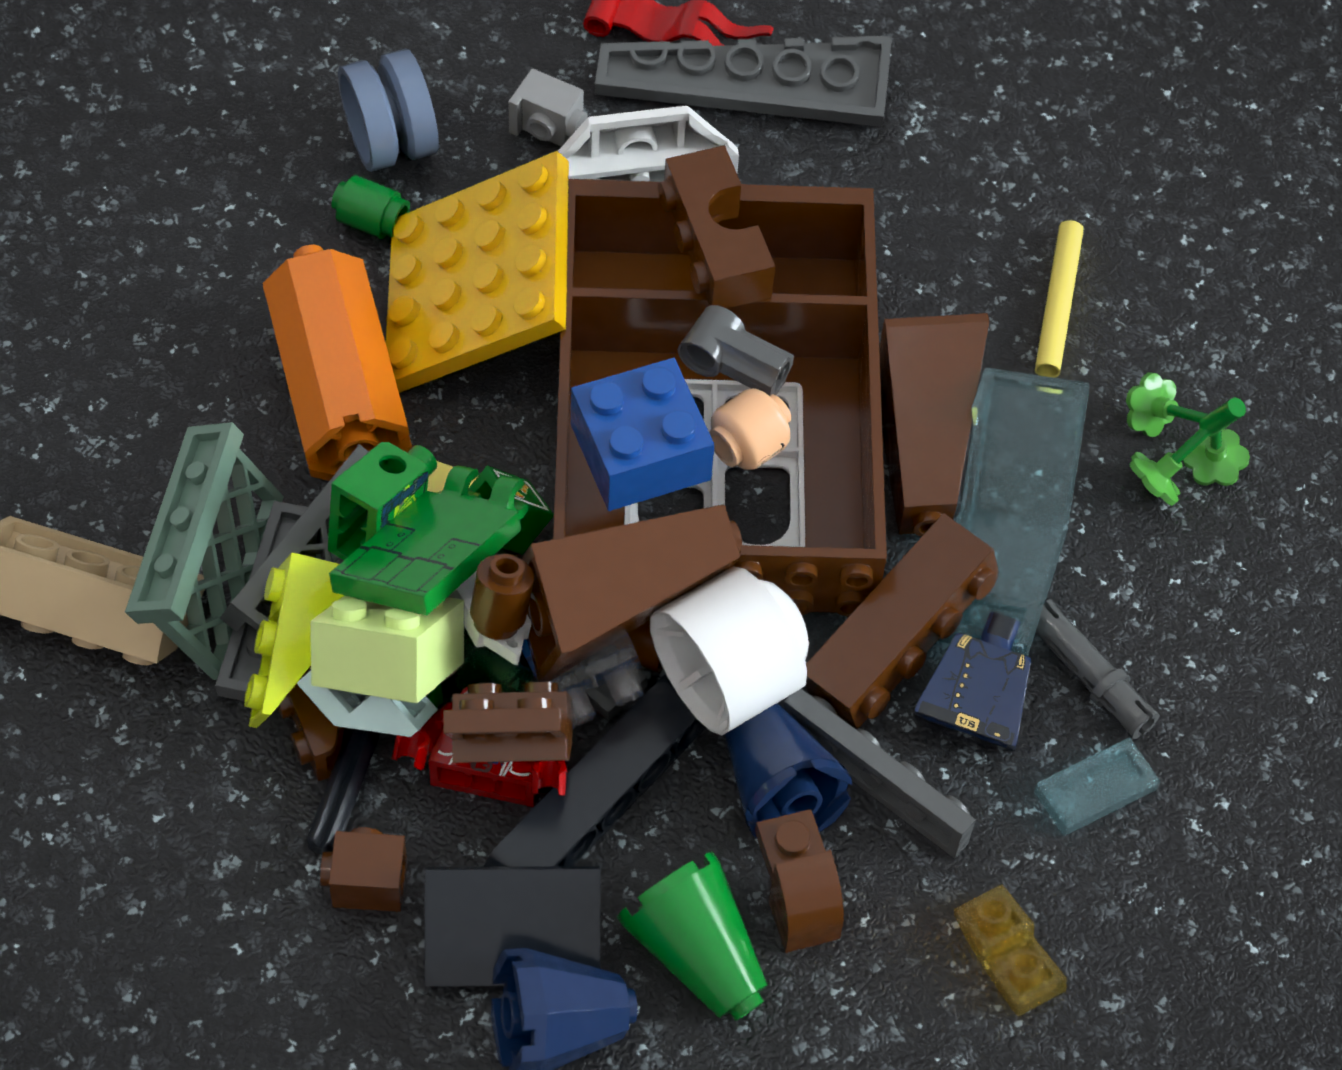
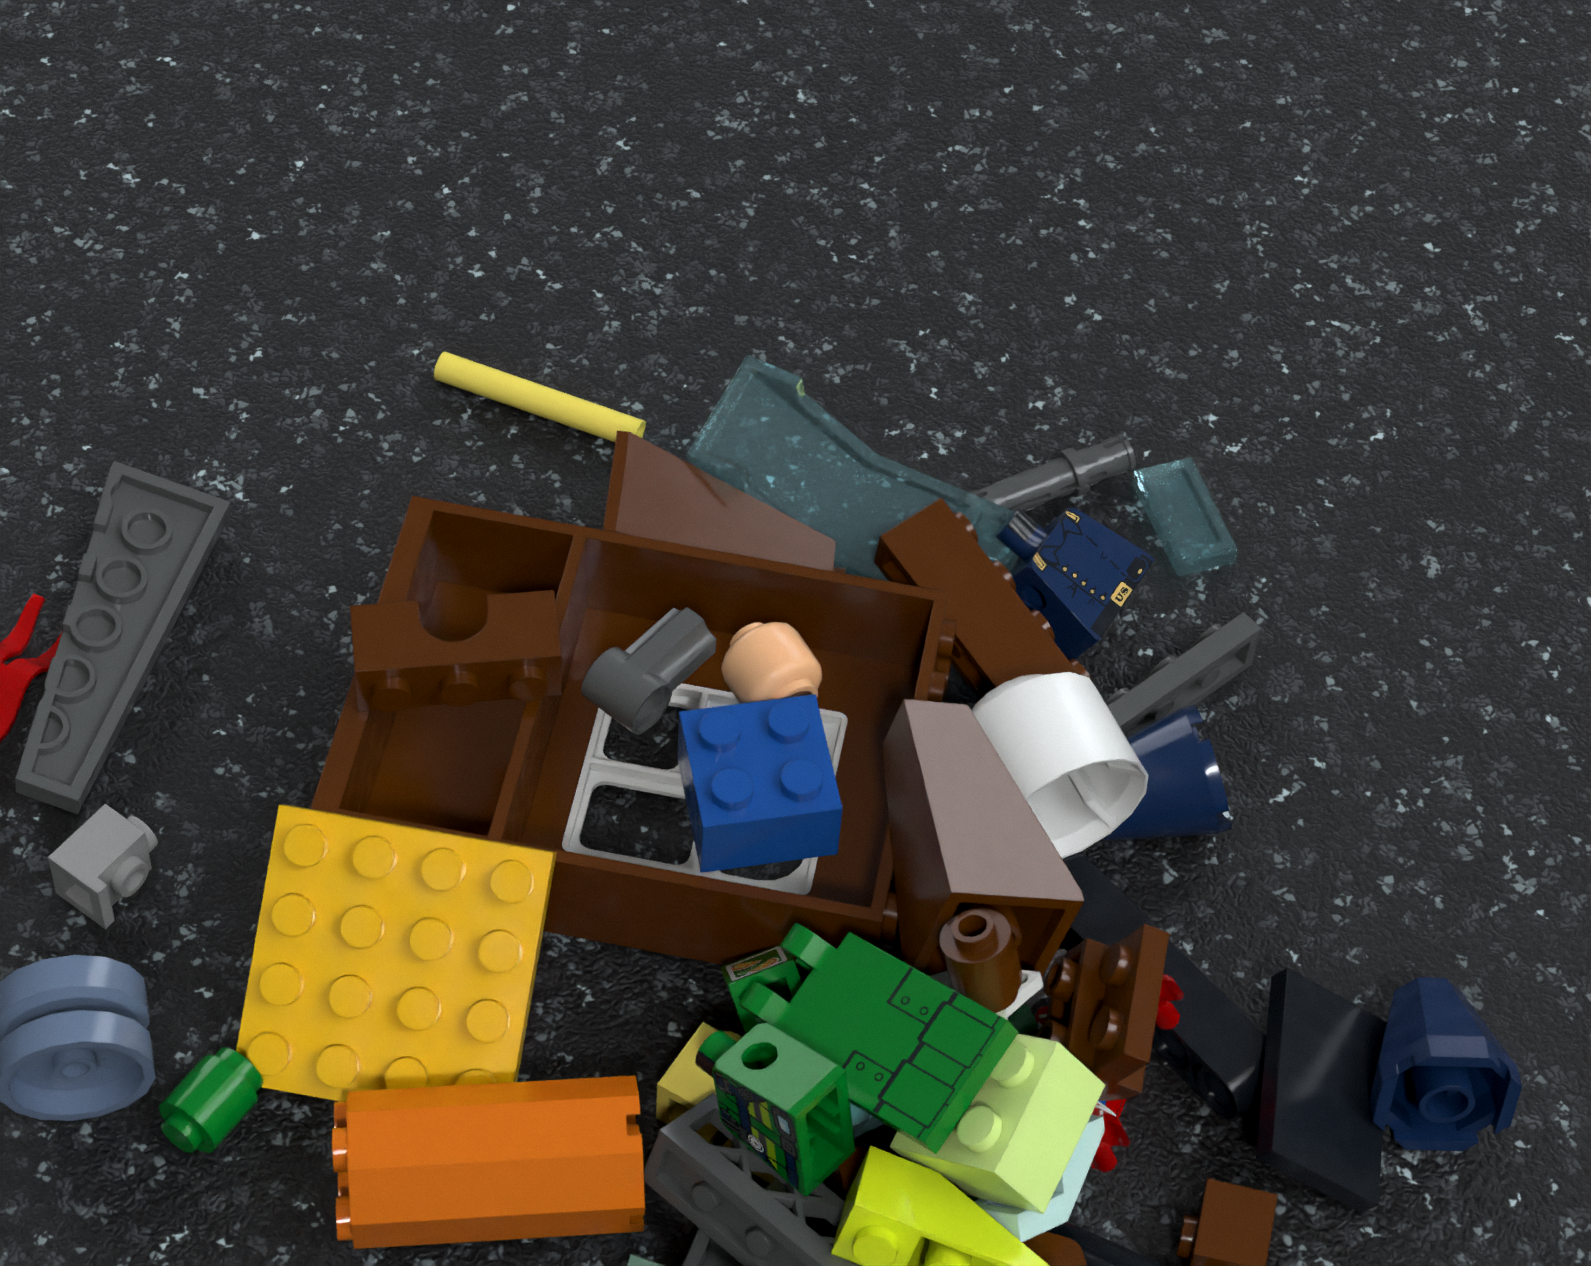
camera: 80 degrees left, 5 degrees down
(638, 142) = (218, 775): white wedge -> none
(700, 937) = (1345, 904): green cone -> none
(804, 881) = (1300, 787): reddish brown brick -> none
(1008, 951) = (1373, 637): clear yellow slope -> none
(1210, 452) = (784, 315): bright green plant -> none

